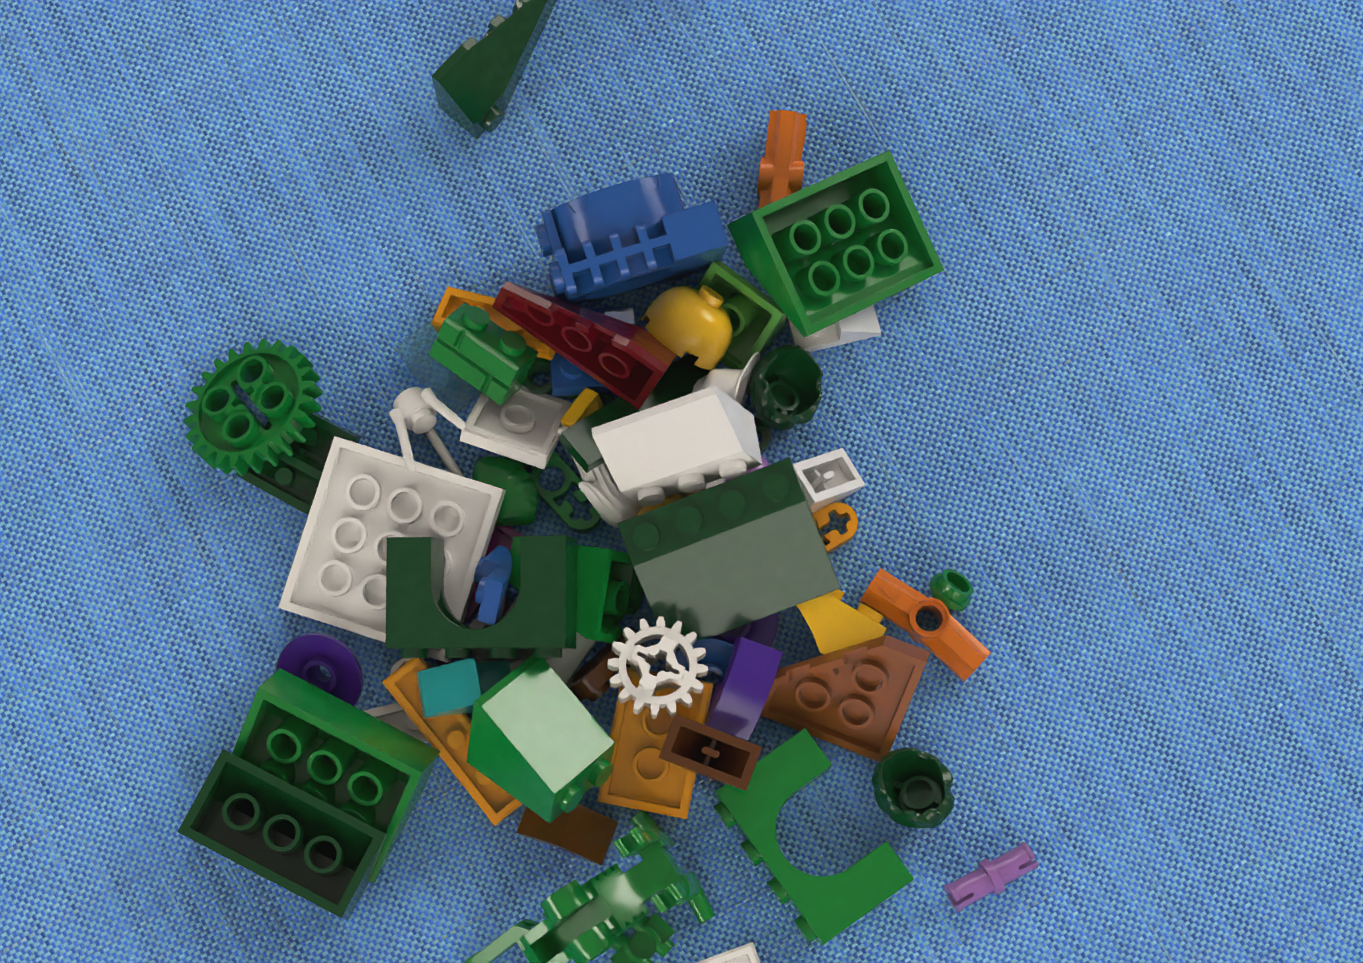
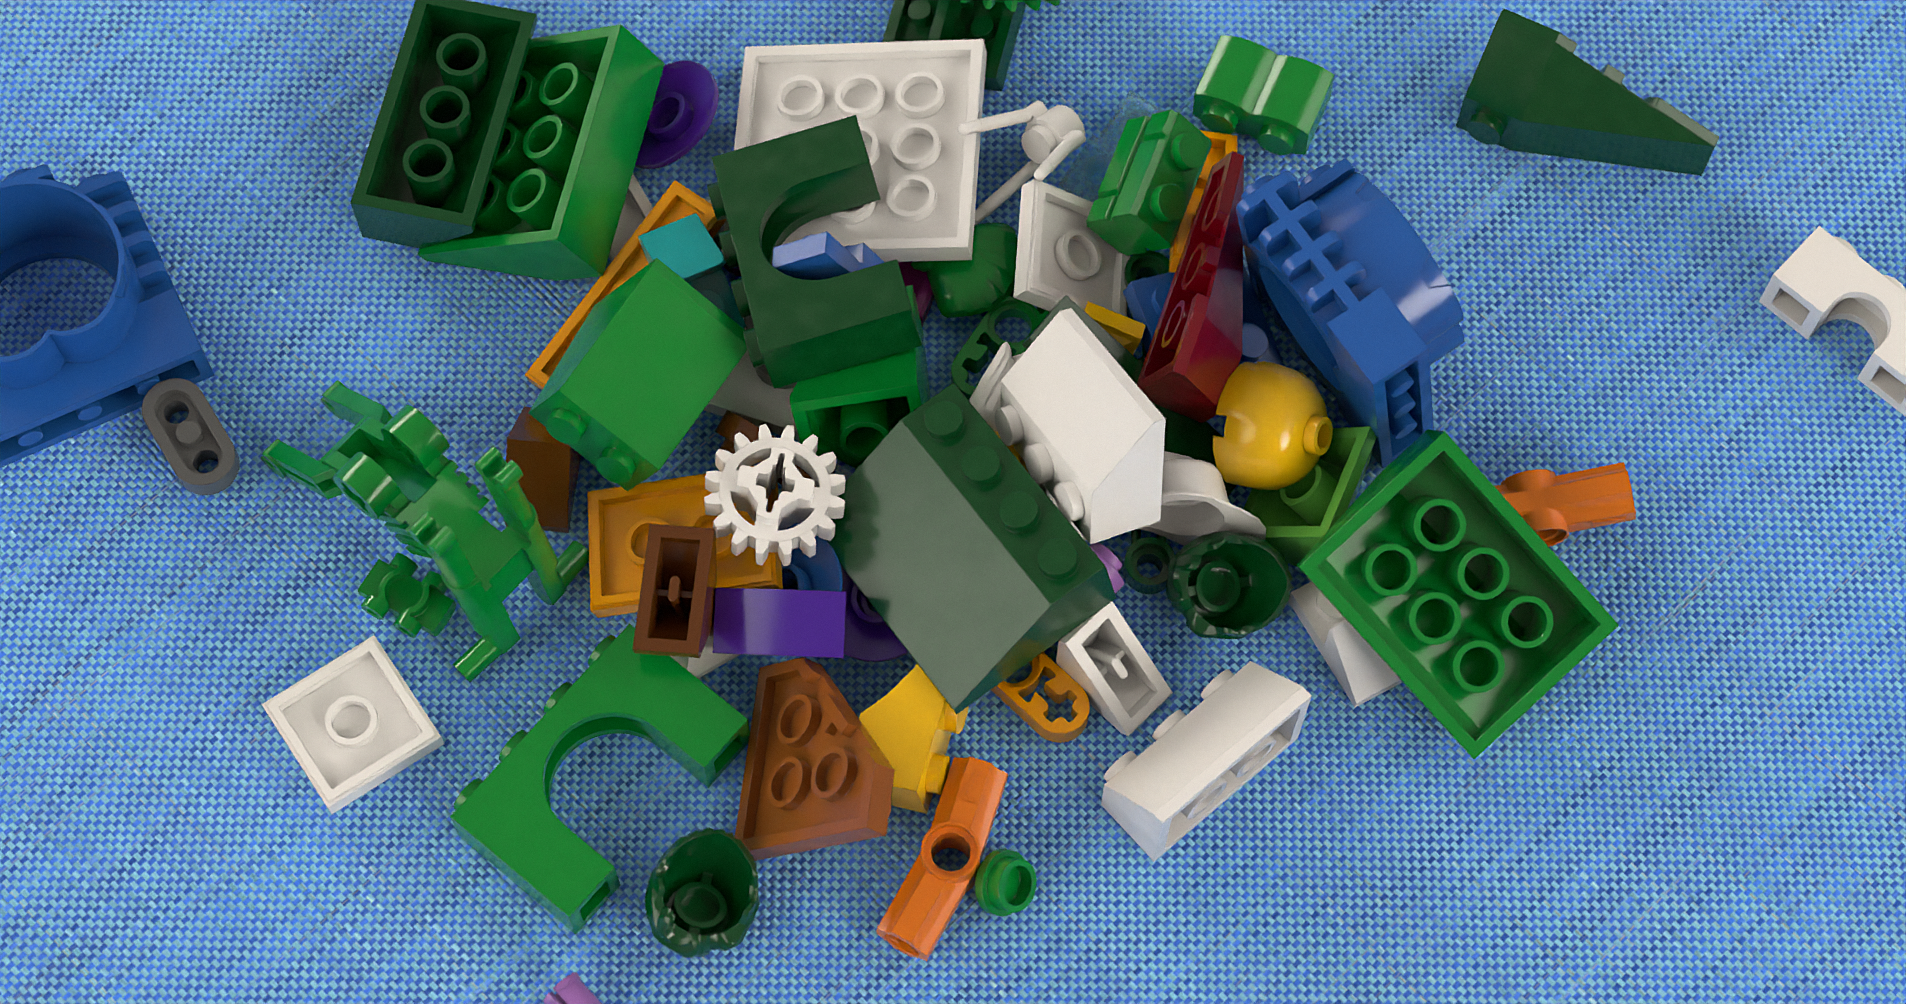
camera: 75 degrees right, 10 degrees down
(424, 260) = (1262, 95): none -> green brick
(902, 437) = (1204, 755): none -> white slope

